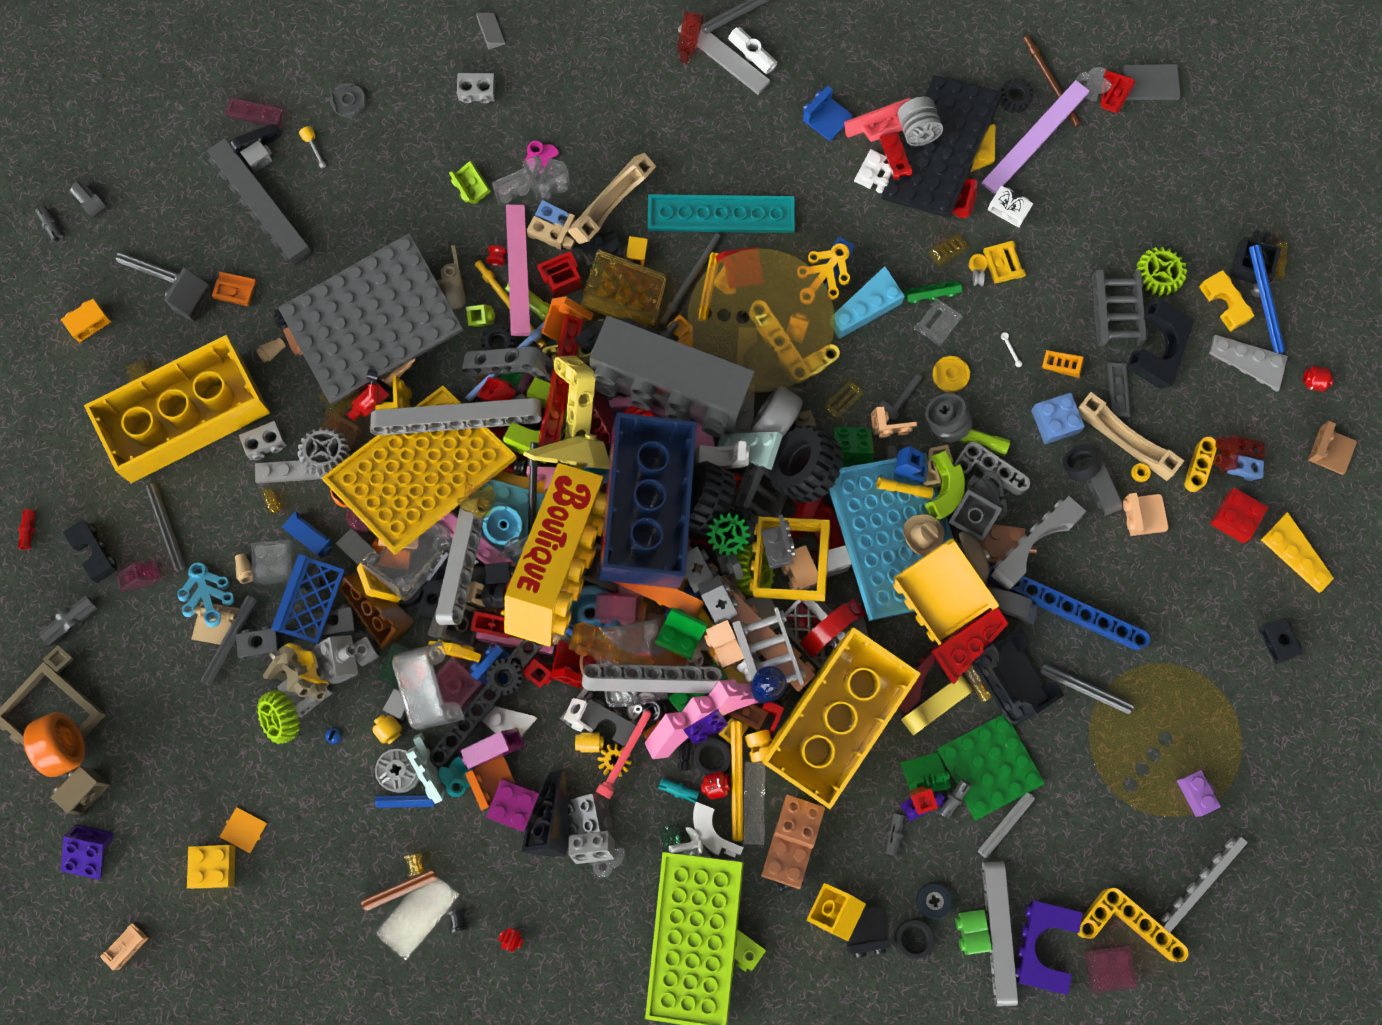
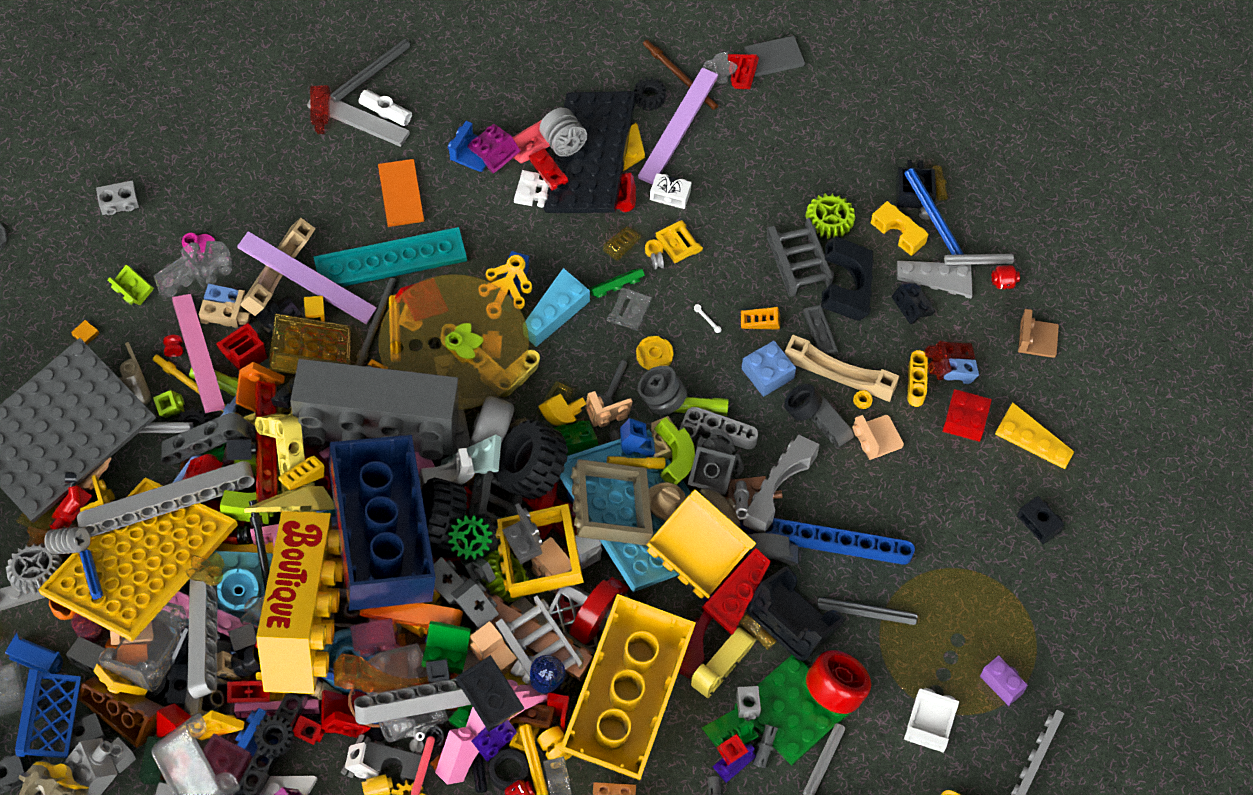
camera: 15 degrees left, 15 degrees down
(357, 435) = (67, 540): none -> light grey piece
(371, 476) = (91, 574): none -> blue axle
(417, 635) = (169, 719): none -> red slope
(418, 221) = (85, 332): none -> light orange tile
(475, 340) = (167, 427): none -> light grey axle
(490, 30) = (120, 144): light grey slope -> none
(534, 383) = (240, 448): none -> black brick
(598, 423) = (309, 470): none -> yellow slope
(636, 216) = (307, 277): none -> lavender tile
(668, 654) = (437, 670): none -> black tile
(710, 692) = (489, 693): none -> black tile
(747, 145) = (400, 193): none -> orange tile
(773, 323) = (466, 341): none -> lime plate
(844, 414) = (558, 412): none -> yellow brick
(848, 119) = (494, 147): none -> magenta bracket
(900, 532) = (610, 532): none -> dark tan window
(956, 747) = (748, 694): none -> light grey brick
(997, 547) = (741, 497): none -> light grey pin
(1040, 757) = (838, 681): none -> red wheel
(1118, 812) = (931, 719): none -> white panel
(1218, 382) = (912, 302): none -> black bracket
(1297, 353) = (978, 259): none -> light grey axle

